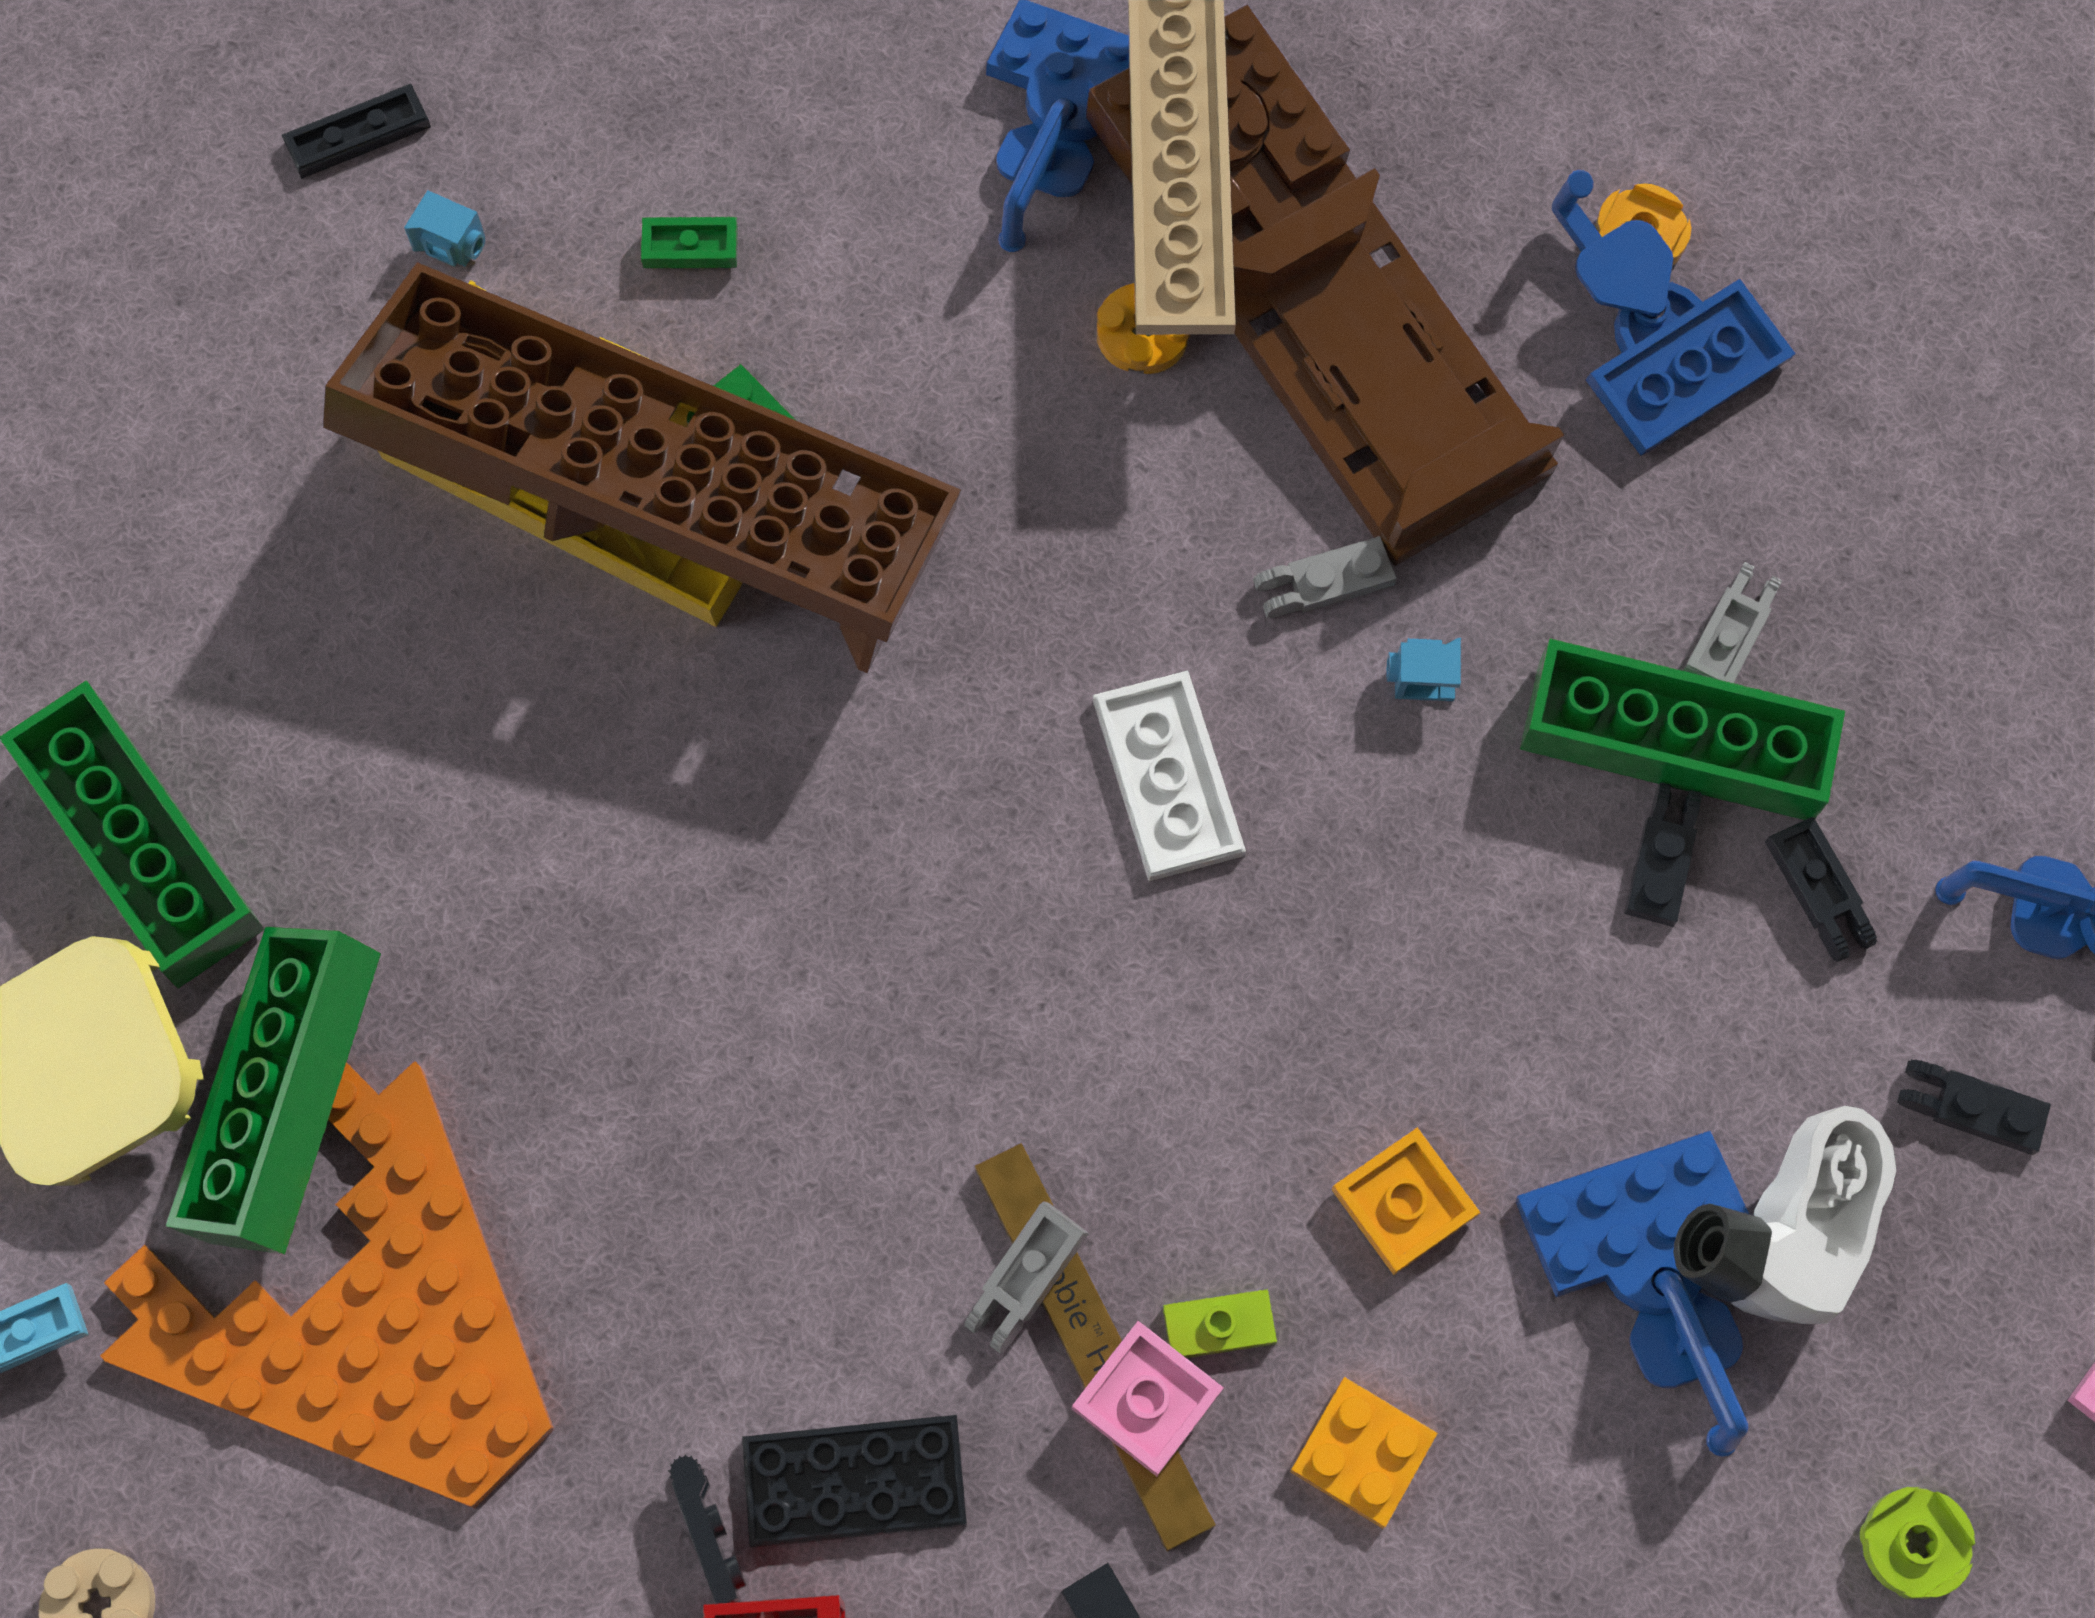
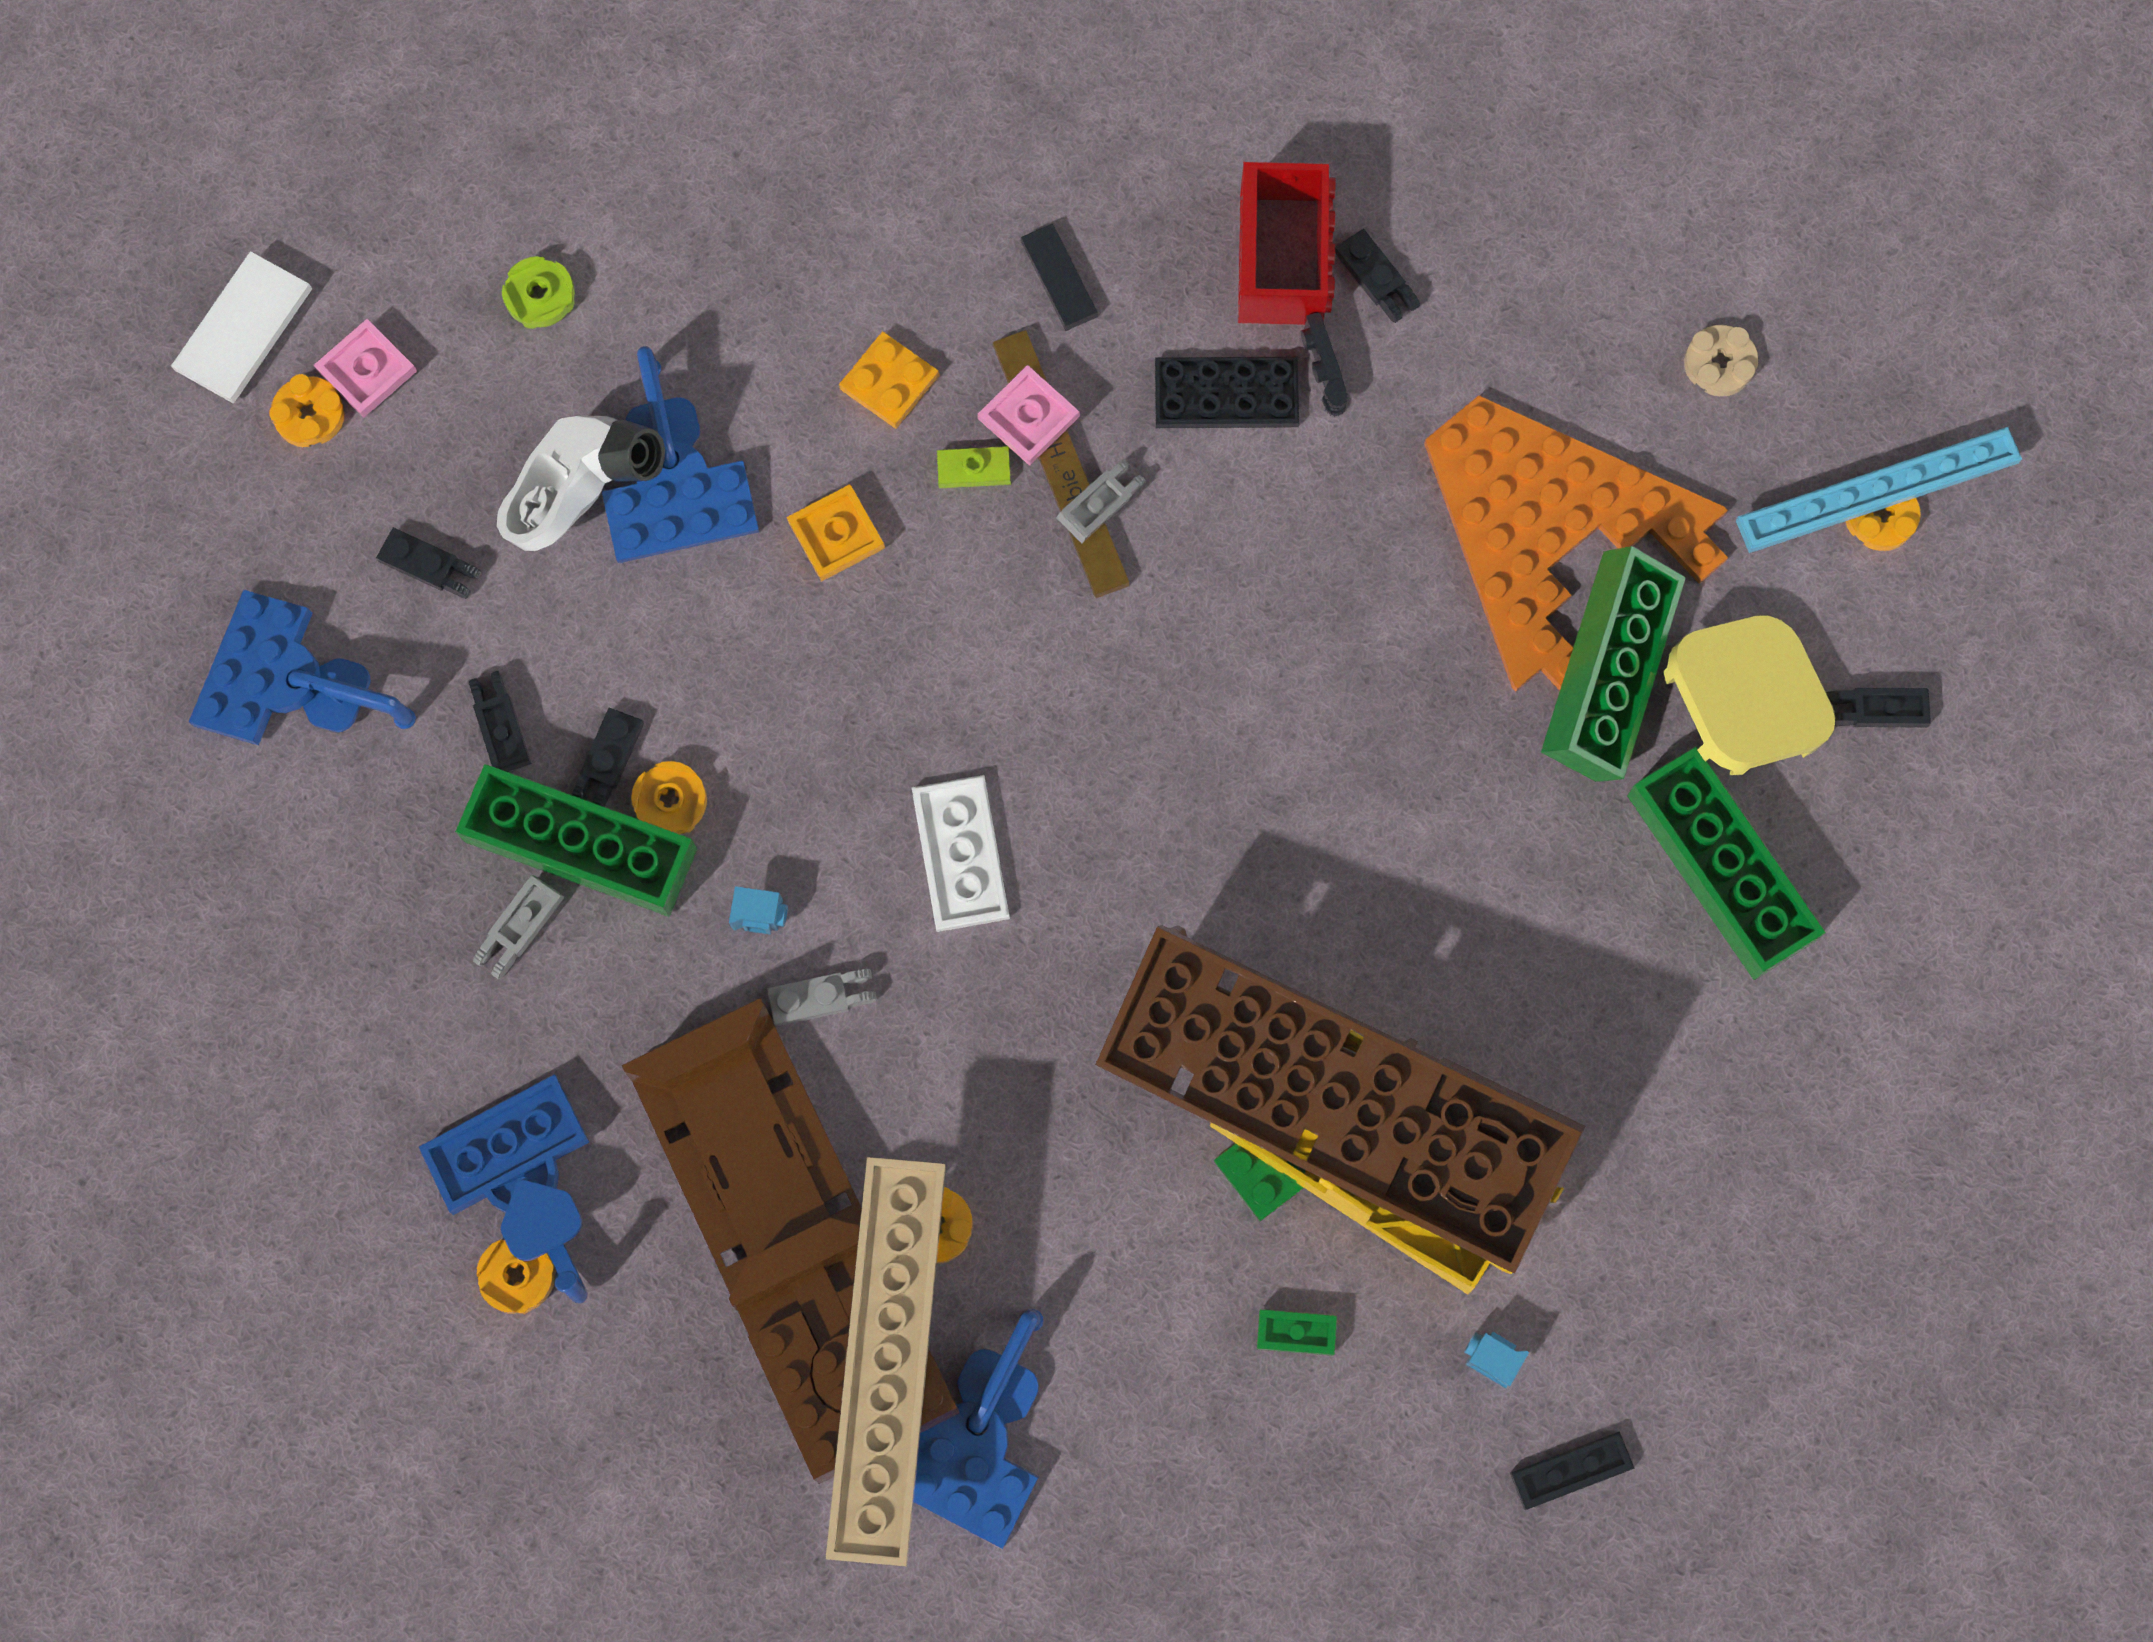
camera: 170 degrees left, 5 degrees up
(1591, 790) = (658, 781): none -> light orange plate

